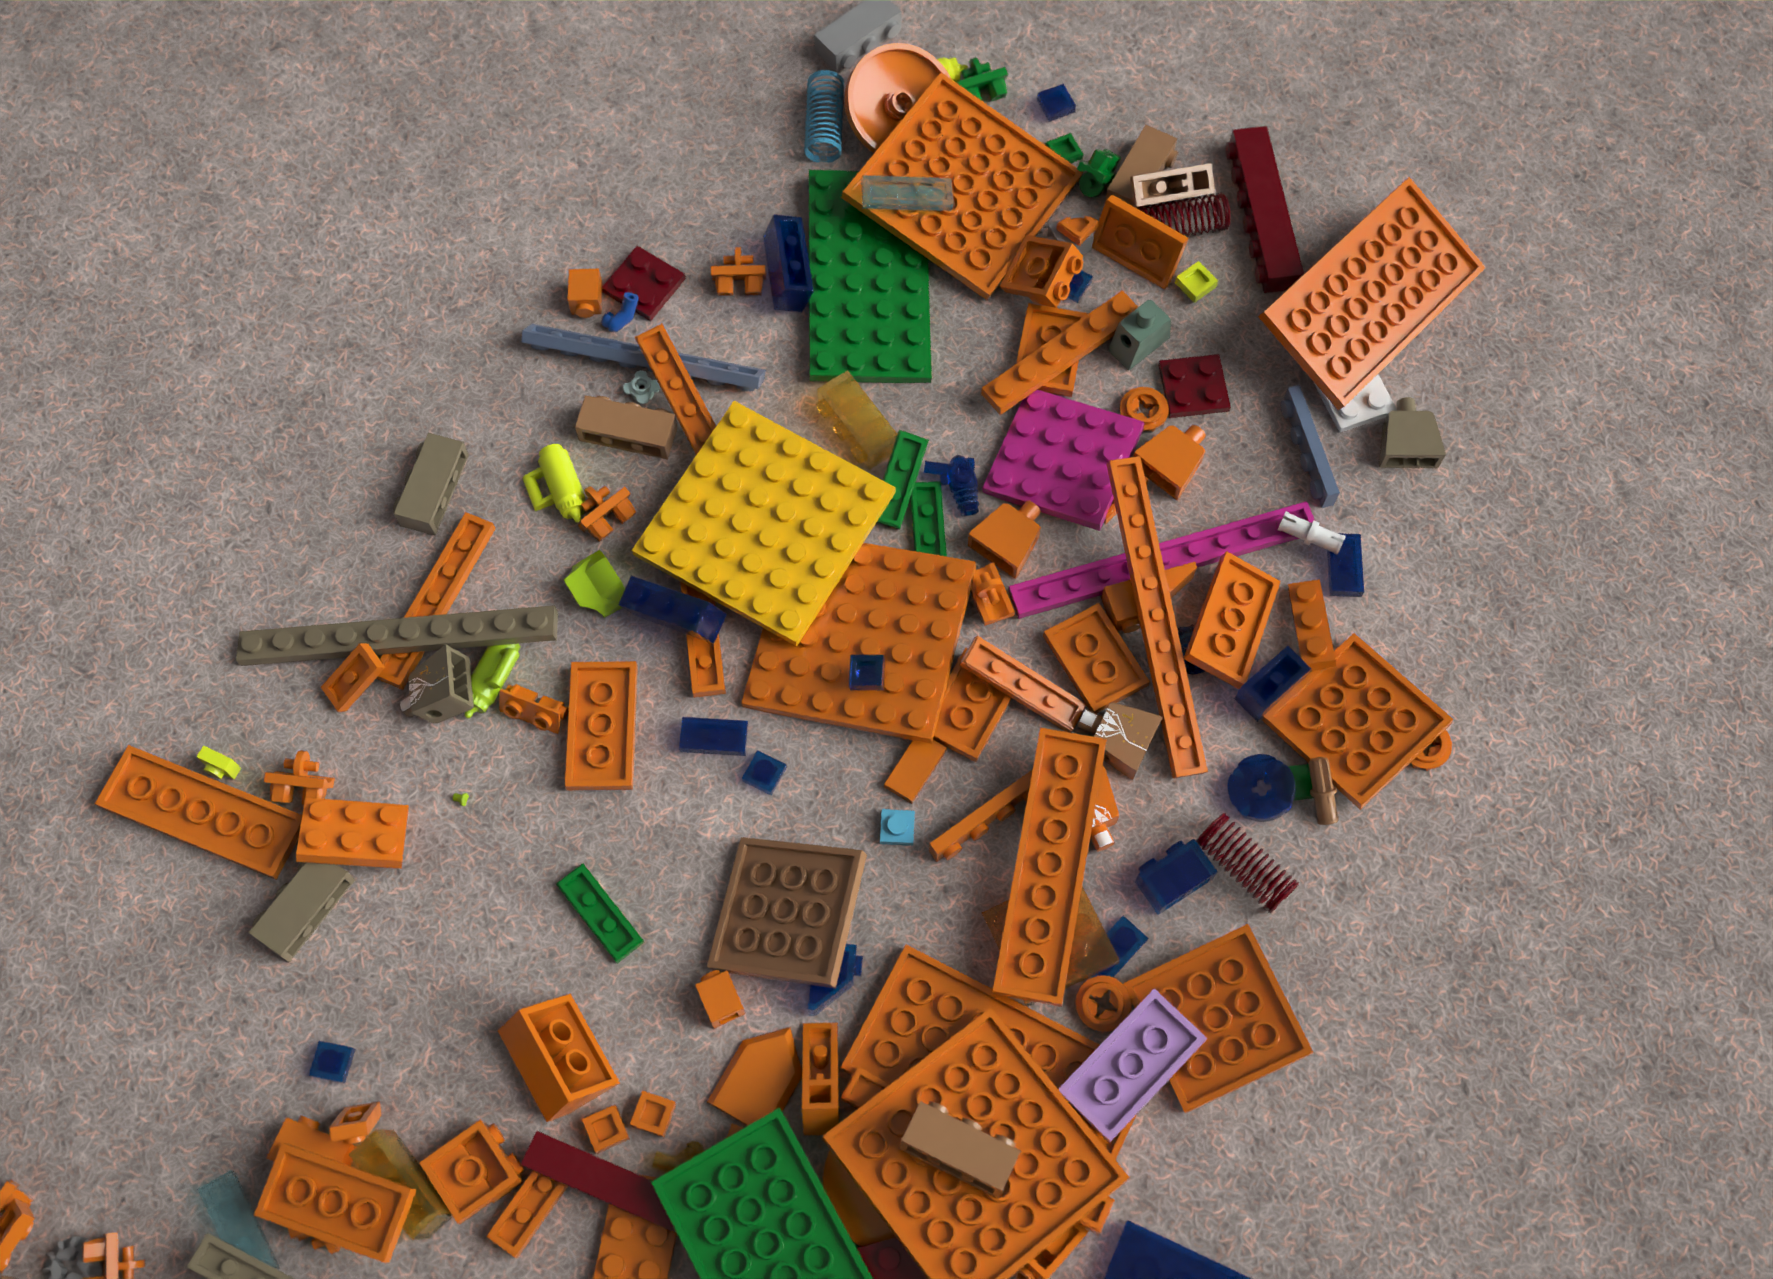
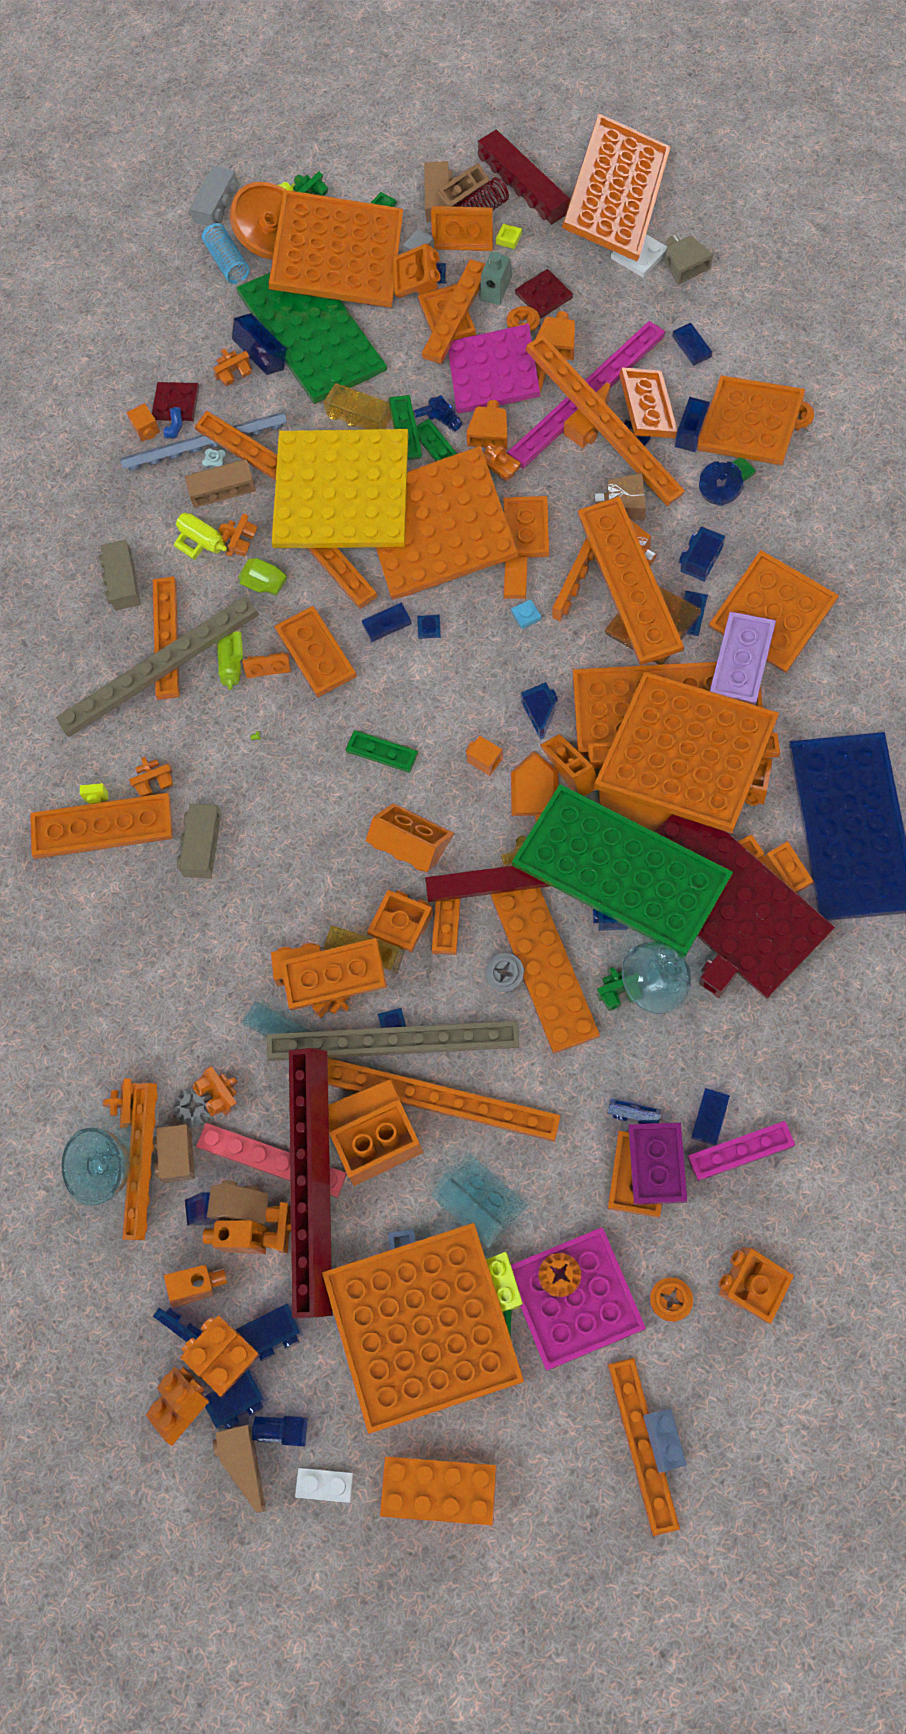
camera: 20 degrees left, 0 degrees up
(331, 1062) = (275, 914): clear blue plate -> none
(352, 677) = (146, 702): orange plate -> none
(352, 833) = (205, 784): orange plate -> none
(355, 1122) = (315, 932): orange plate -> none
(440, 687) = (204, 679): dark tan torso -> none
(605, 1129) = (463, 858): orange plate -> none
(653, 1114) = (485, 836): orange plate -> none
(672, 609) = (317, 563): clear blue brick -> none
(787, 911) = (494, 685): medium nougat plate -> none
(866, 672) = (457, 534): clear blue plate -> none
(907, 193) = (308, 264): clear light blue plate -> none
(960, 1148) = (677, 745): medium nougat brick -> none
(1022, 684) = (547, 498): orange tile -> none
(1056, 102) = (361, 179): clear blue plate -> none
(1077, 228) = (421, 237): orange tile -> none
(1088, 1008) = (712, 631): orange gear -> none
(1096, 658) = (582, 465): orange plate -> none
(1098, 172) = (412, 204): green hips -> none
(1270, 905) = (766, 533): dark red piece -> none
(1311, 533) = (663, 334): white pin -> none
(1311, 624) = (693, 382): orange plate -> none
(1313, 456) = (632, 290): sand blue plate -> none
(1323, 791) = (756, 465): medium nougat axle -> none

